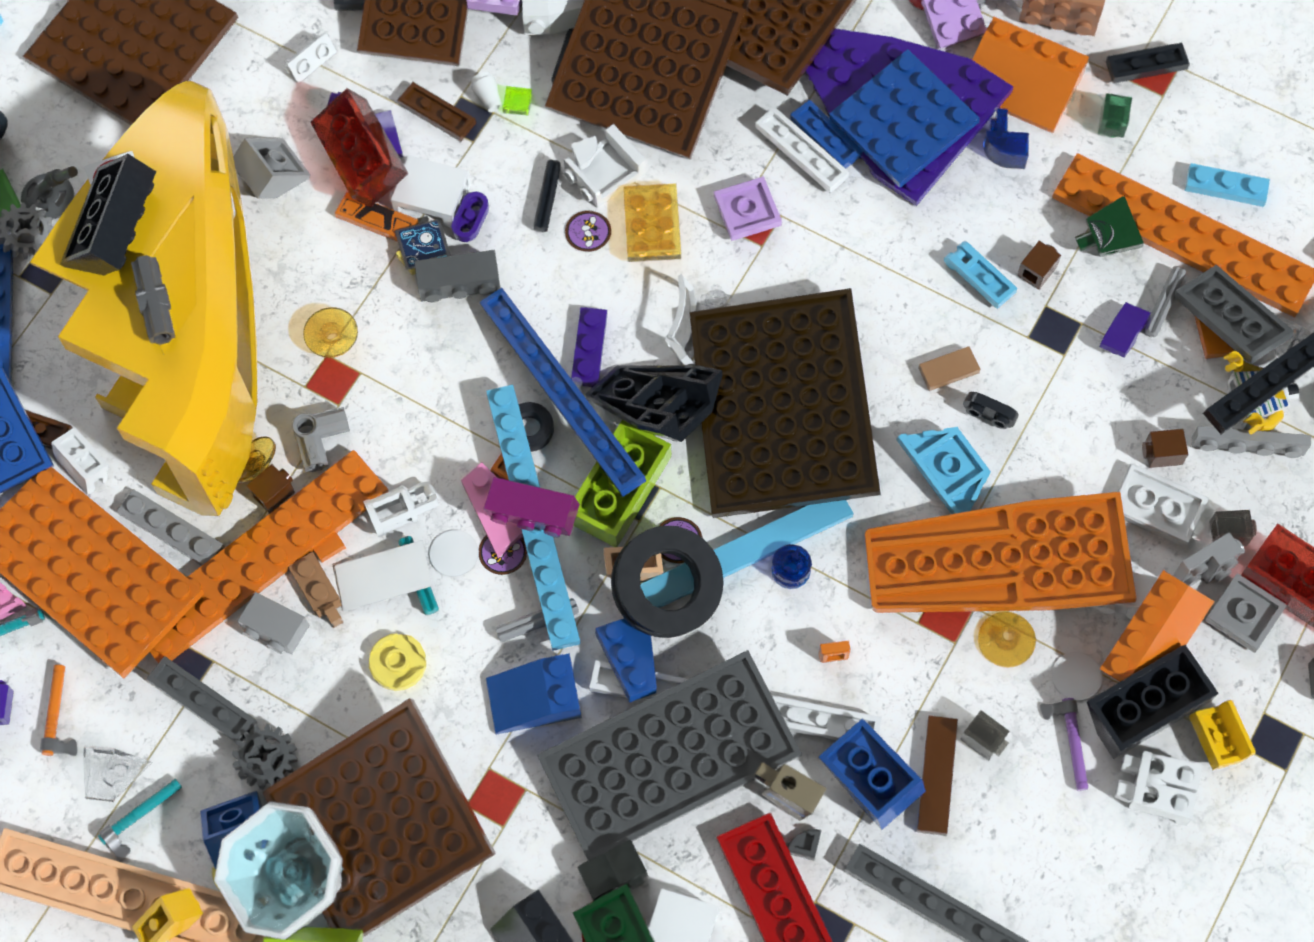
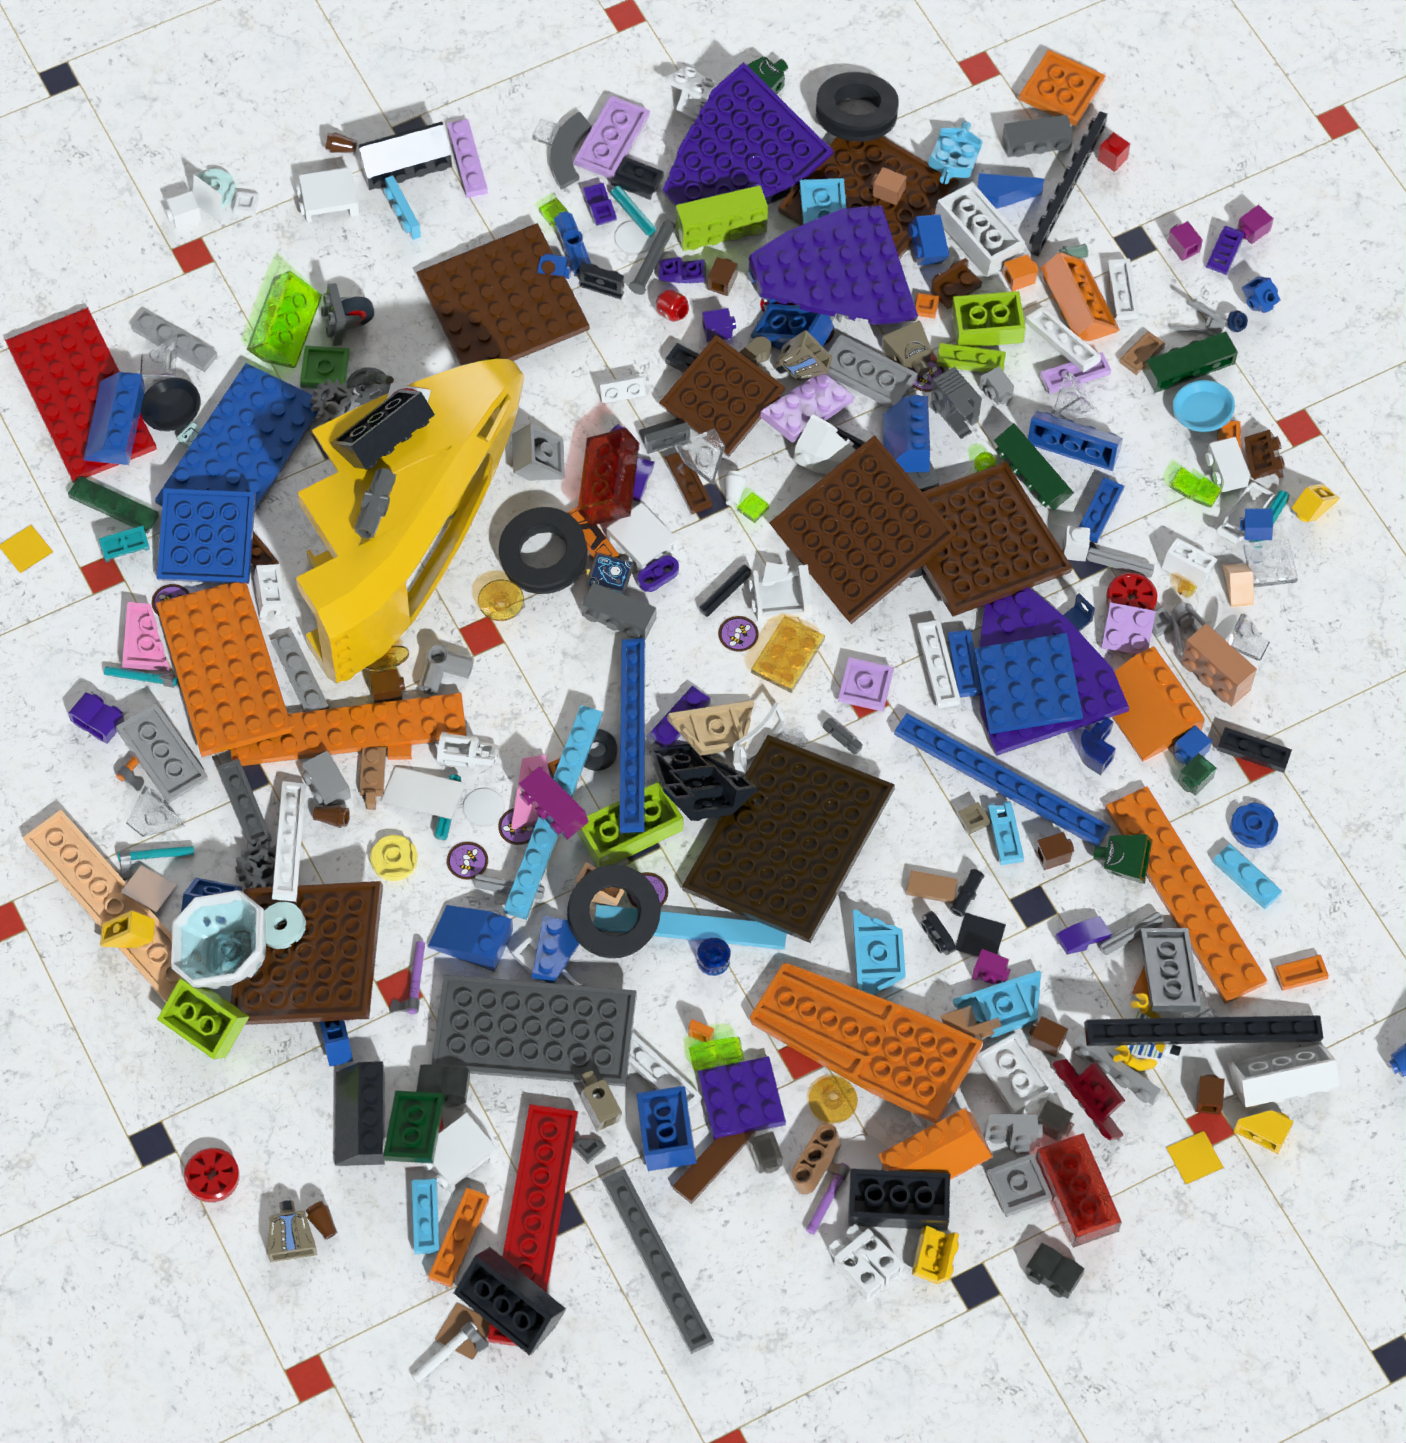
camera: 30 degrees right, 5 degrees down
(76, 700) = (161, 753): none -> light grey plate
(157, 855) = (148, 888): none -> sticker
(279, 714) = (289, 841): none -> white plate
(304, 656) = (332, 815): none -> reddish brown cone
(330, 224) = (543, 521): none -> black tyre
(348, 803) = (292, 932): none -> light aqua tile
(383, 78) = (664, 435): none -> dark grey panel
(435, 74) = (702, 454): none -> clear slope
(472, 899) = (336, 1042): none -> blue slope
(474, 618) = (467, 860): none -> sticker
(521, 805) = (412, 1004): none -> medium lavender piece
(632, 336) = (715, 727): none -> tan wing
(760, 271) = (842, 736): none -> dark grey axle
(864, 664) = (716, 1052): none -> clear neon green slope
(900, 28) = (1079, 615): none -> dark blue bracket
(919, 694) = (741, 1097): none -> dark purple plate
(941, 226) = (1002, 780): none -> blue plate
(941, 278) = (973, 818): none -> dark tan plate
(987, 354) = (967, 892): none -> black pin
(1028, 389) = (979, 934): none -> black sticker
(1038, 724) = (815, 1169): none -> medium nougat beam
(1064, 413) = (991, 968): none -> magenta brick
(1078, 482) = (965, 1021): none -> medium nougat brick
(1091, 92) = (1191, 744): none -> blue brick
(1101, 444) = (1011, 1001): none -> medium azure wing
(1197, 133) = (1254, 825): none -> blue tile
(1251, 477) = (1094, 1093): none -> dark red bracket

